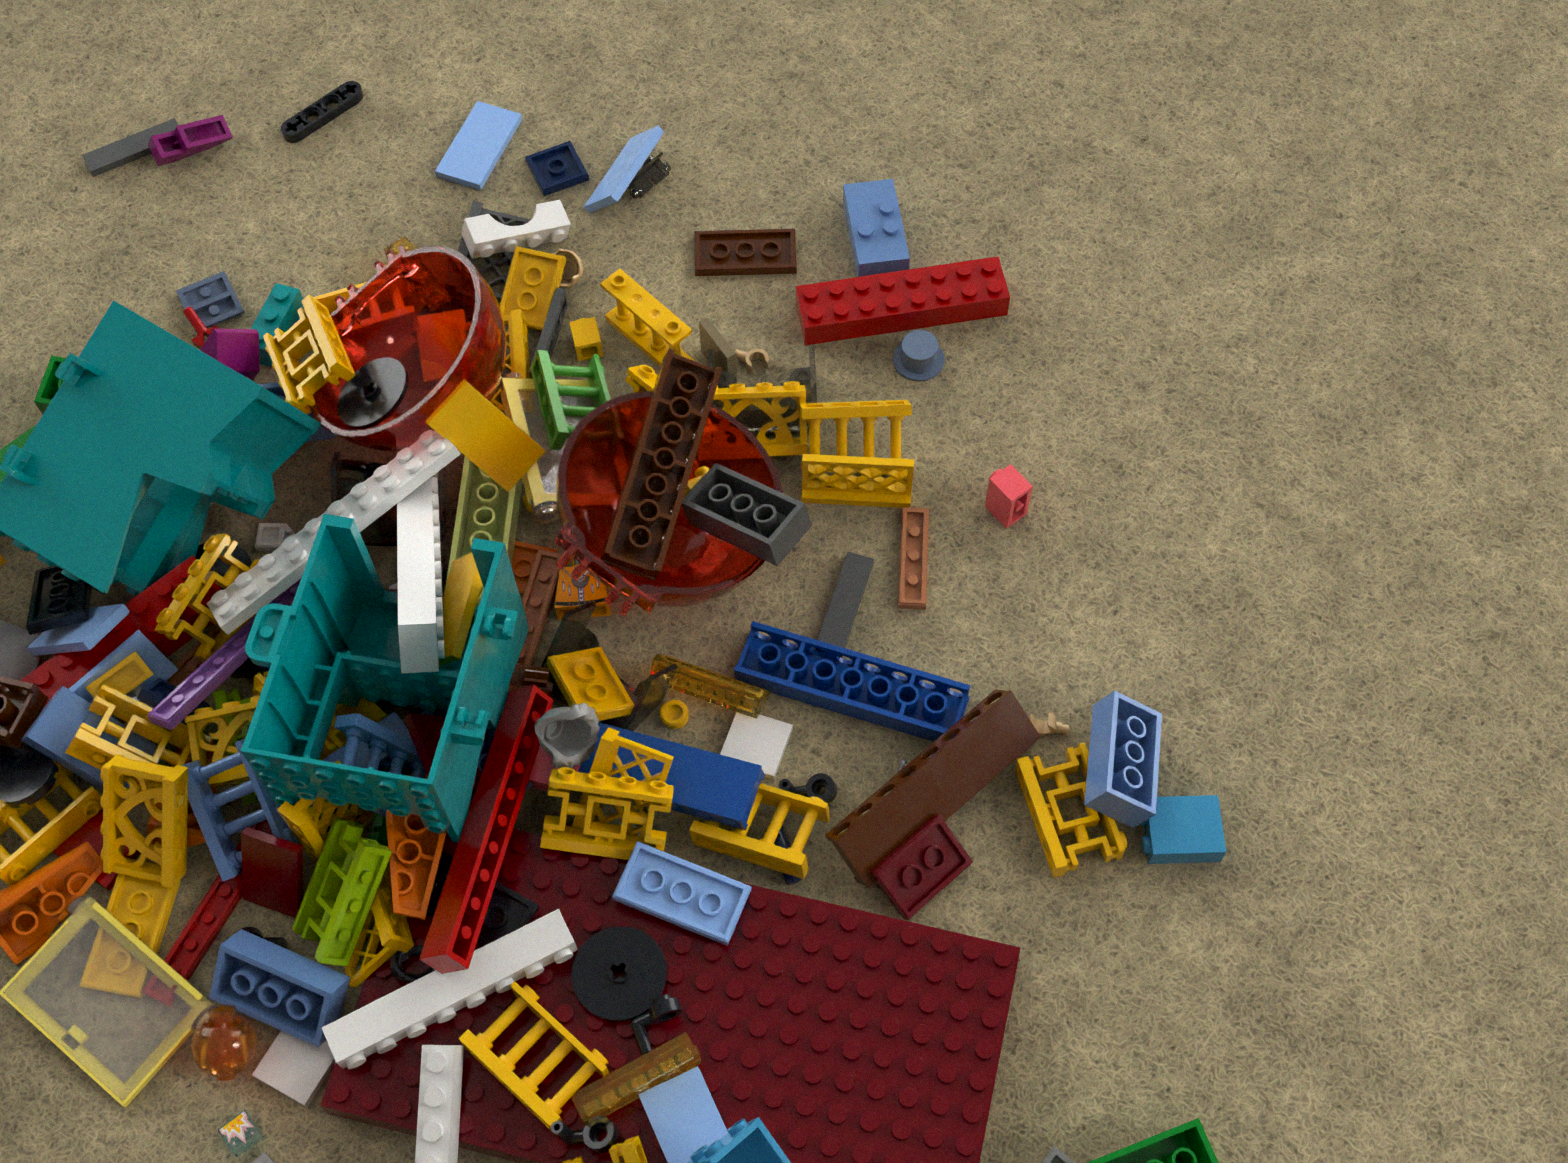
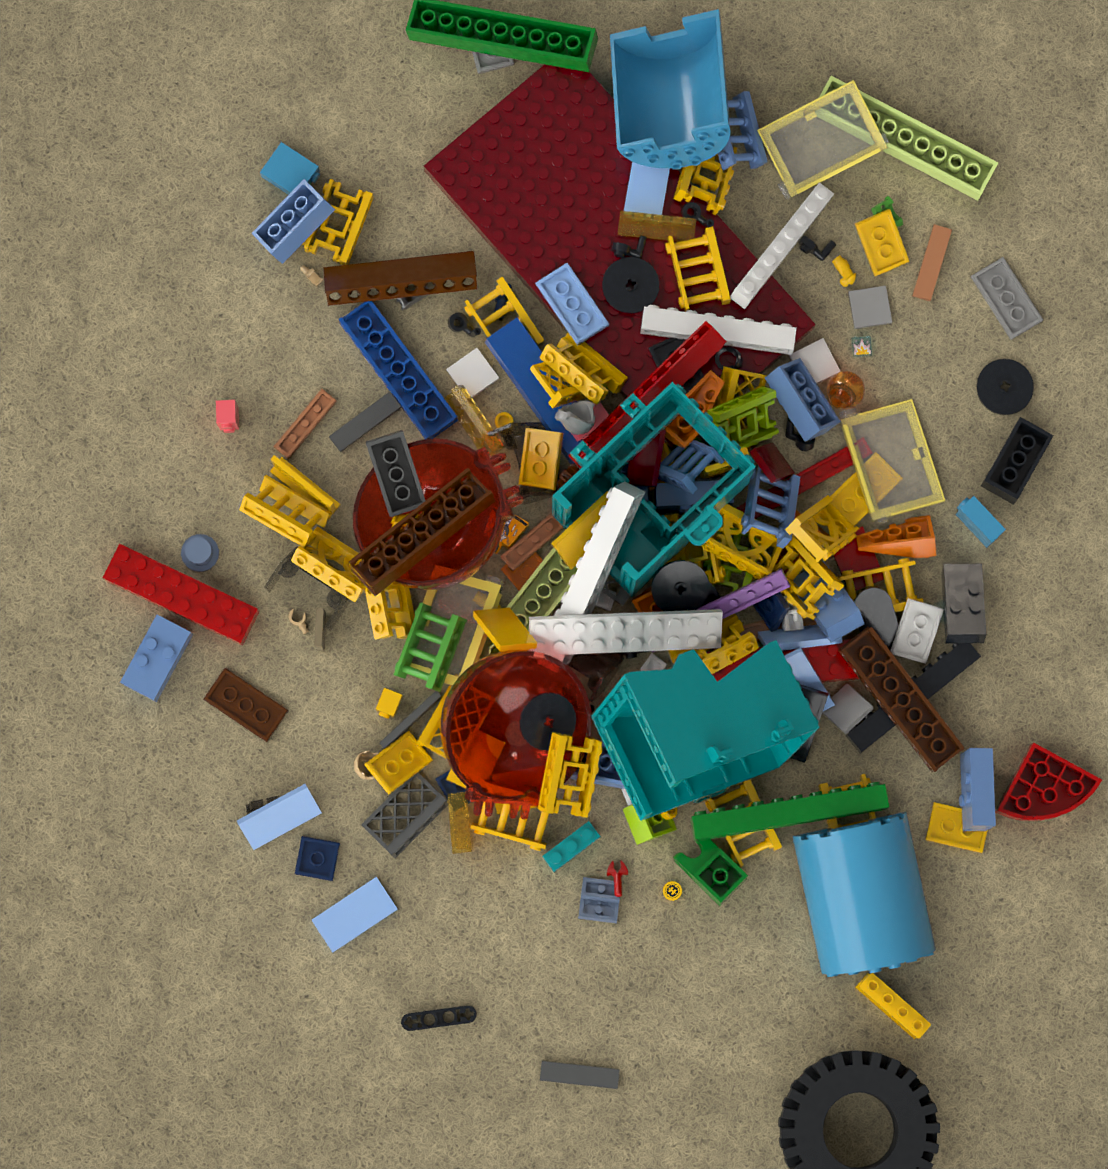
camera: 145 degrees left, 20 degrees up
(123, 676) = (793, 630): yellow tile -> none
(189, 139) = (541, 1048): magenta slope -> none
(235, 349) = (617, 821): magenta slope -> none
(487, 236) = (357, 807): white arch -> none
(644, 318) = (348, 676): yellow fence -> none
(921, 867) = (438, 243): dark red tile -> none

